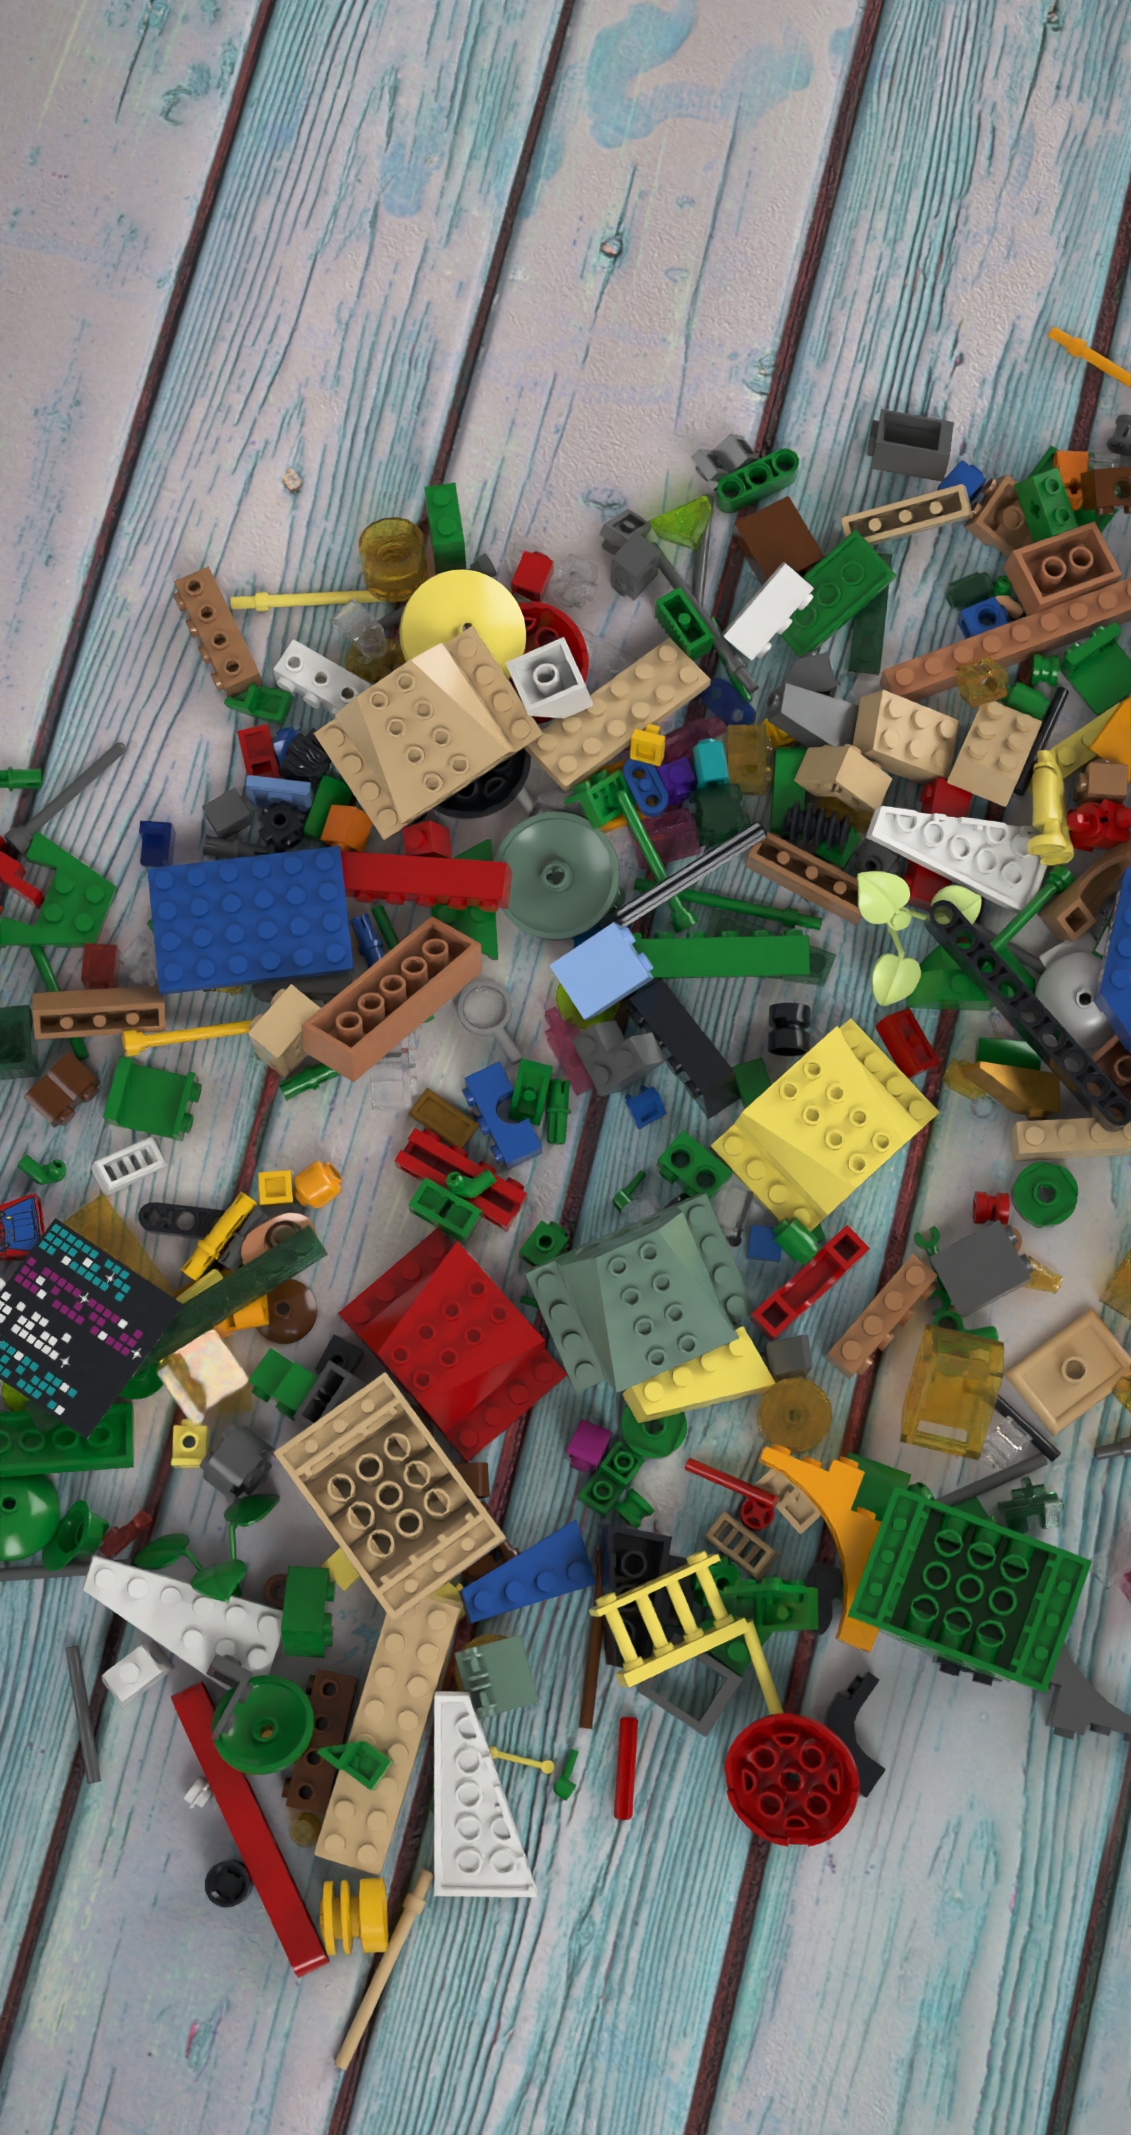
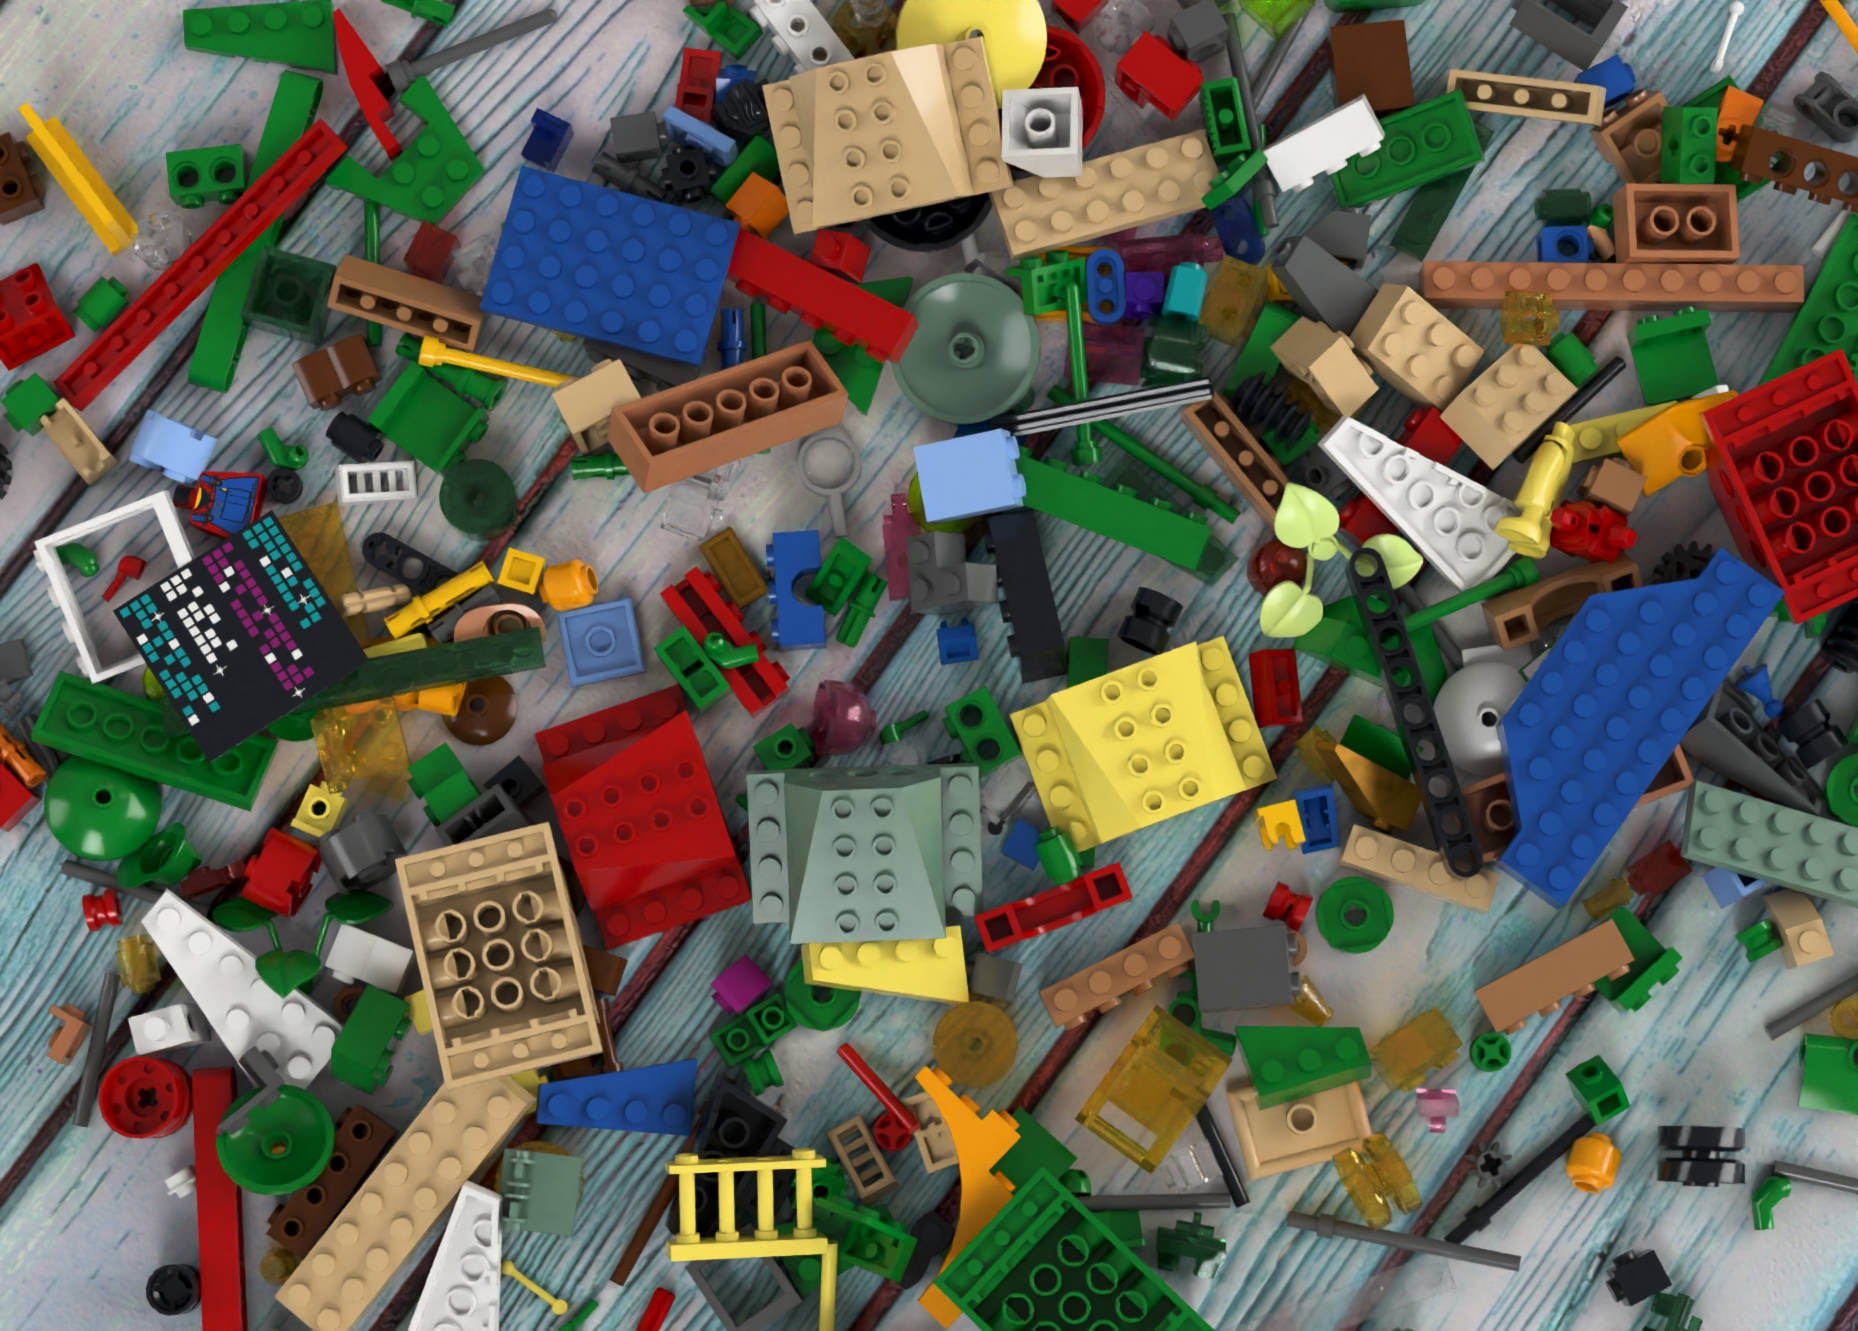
camera: 25 degrees right, 5 degrees up
(43, 1597) = (102, 910): none -> red wheel
(53, 1187) = (286, 474): none -> black bush
(56, 1716) = (67, 1039): none -> nougat bracket
(89, 1629) = (137, 964): none -> clear yellow brick
(98, 1136) = (355, 437): none -> black brick
(126, 1745) = (126, 1099): none -> red wheel
(166, 1257) = (375, 599): none -> tan axle
(168, 1055) = (466, 380): none -> green pin
(180, 1506) = (282, 873): none -> red brick
(201, 1150) = (497, 511): none -> clear green brick
(279, 1547) = (370, 960): none -> white brick
(360, 1761) = (358, 1219): green slope -> none
(362, 1219) = (601, 642): none -> medium blue plate
(579, 1200) = (842, 718): none -> clear pink cylinder
(619, 609) = (1158, 76): none -> red brick
(648, 745) = (1125, 243): yellow tile -> none
(710, 663) = (1230, 182): none -> green plate
(866, 947) = (1275, 563): none -> clear red hair
(962, 1143) = (1279, 821): none -> yellow hinge
(982, 1130) = (1317, 817): none -> blue slope
(1034, 395) = (1736, 9): none -> white hinge
(1044, 670) = (1608, 330): green wheel -> none
(1053, 1324) = (1300, 1061): none -> green wedge

